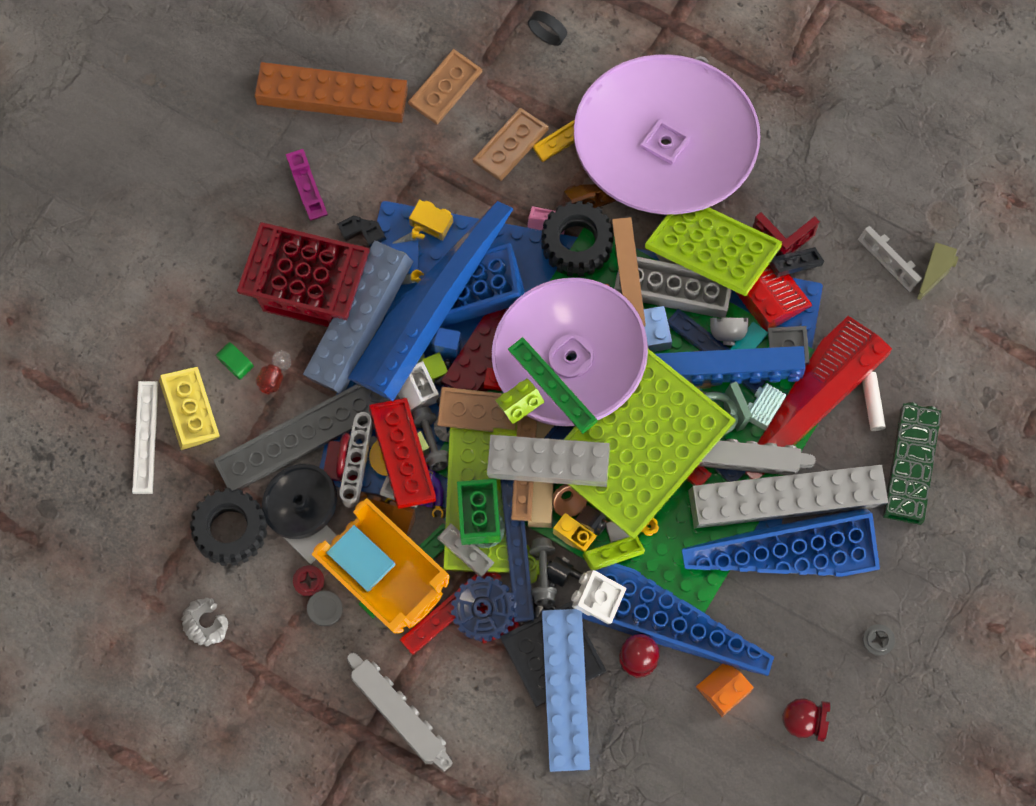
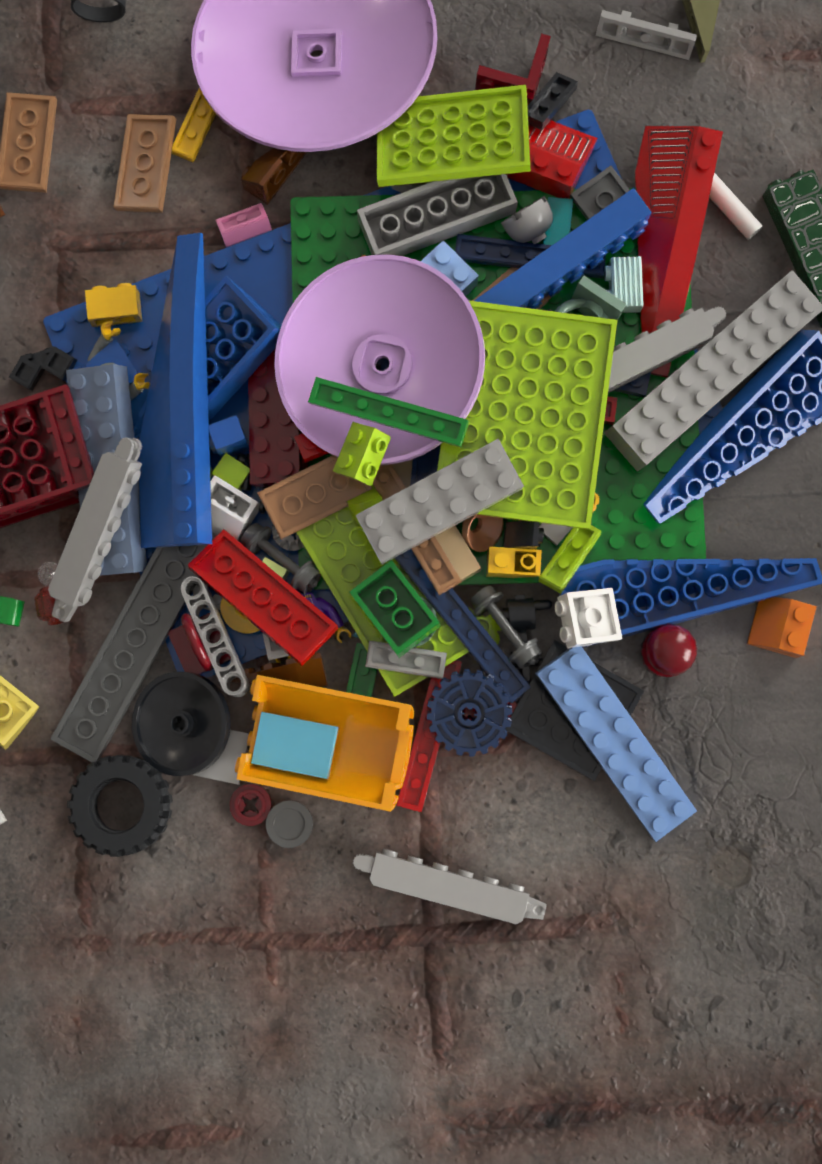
camera: 35 degrees left, 10 degrees up
(195, 631) = (162, 945): light grey piece -> none
(327, 346) = (94, 528): none -> light grey hinge
(582, 216) = (288, 193): black tyre -> none
(628, 263) = (370, 213): medium nougat tile -> none

